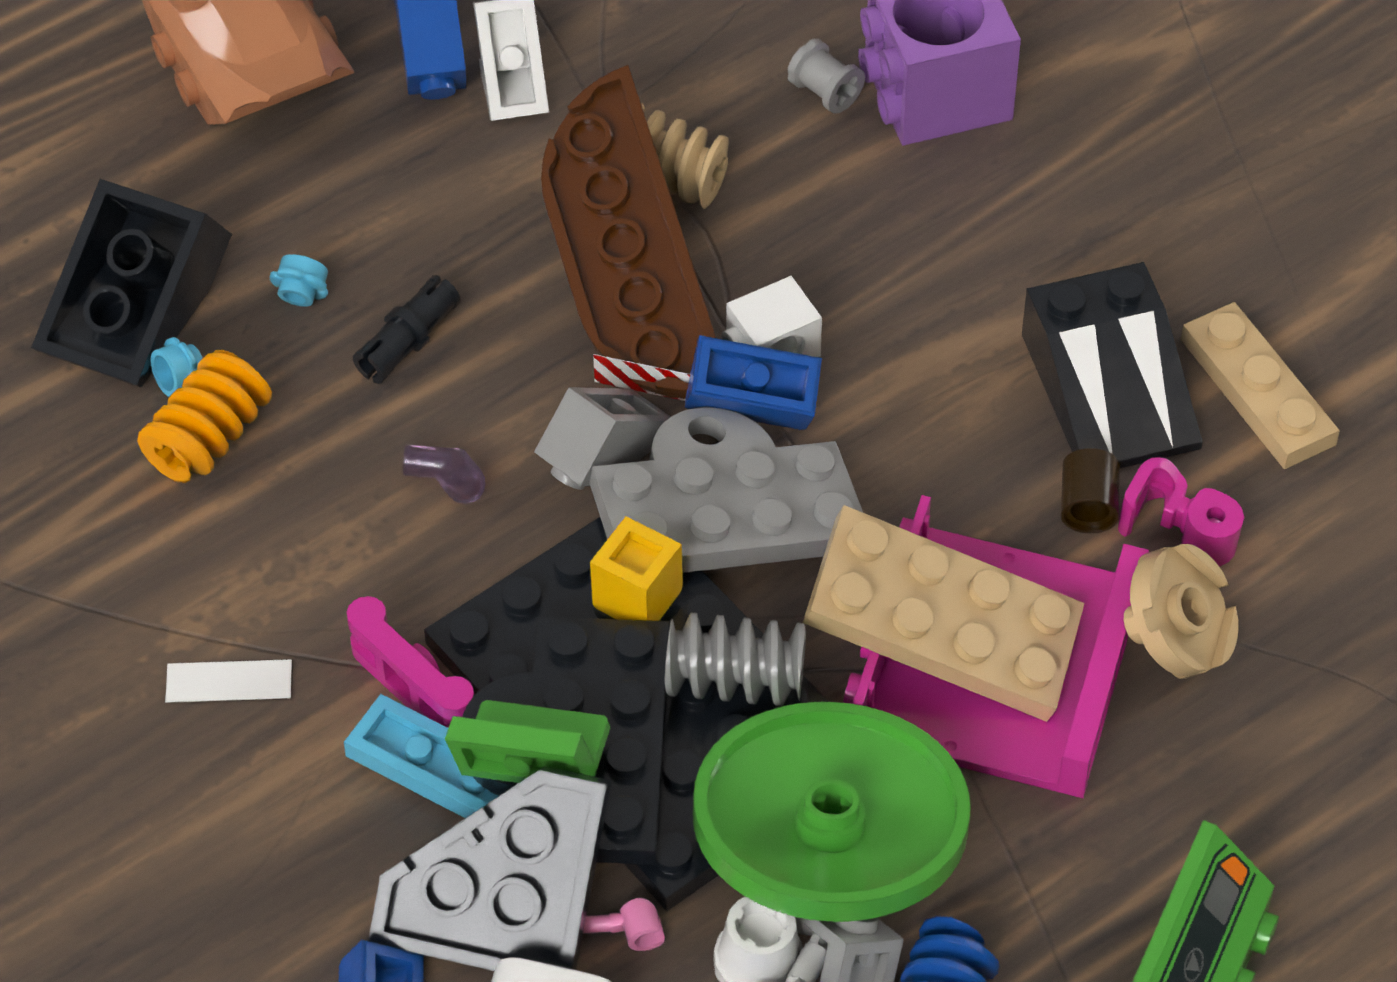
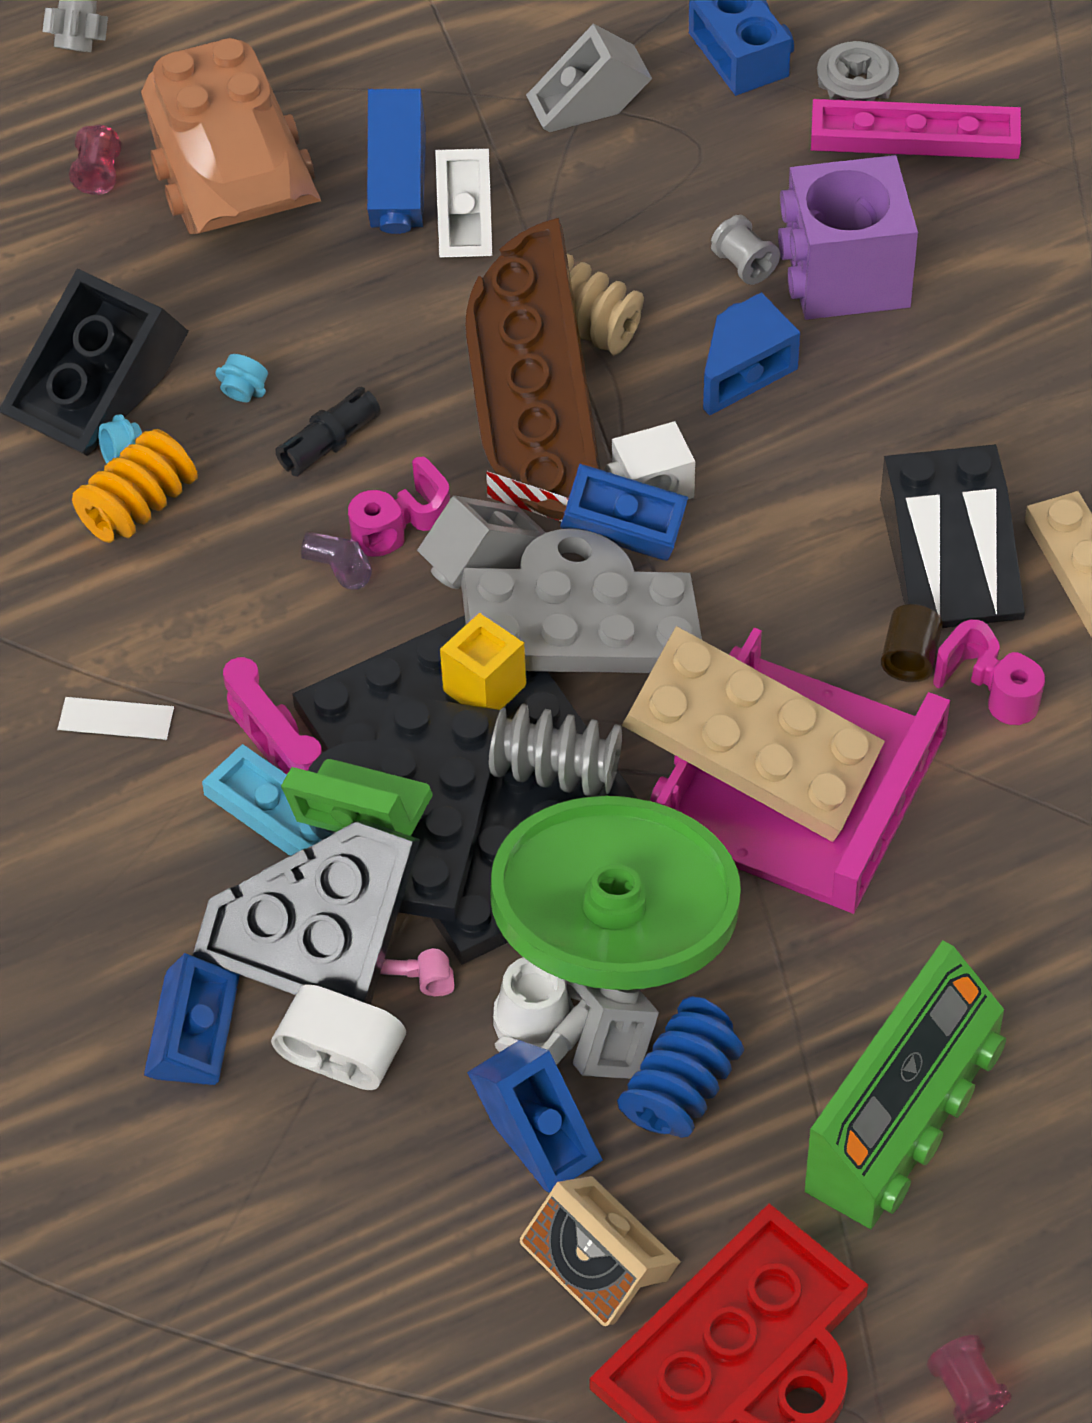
camera: 10 degrees right, 0 degrees up
(89, 57) = (94, 167): none -> clear pink bush
(485, 422) = (380, 520): none -> dark pink leg
(853, 188) = (748, 351): none -> blue slope
(1181, 610) = (946, 759): tan plate -> none

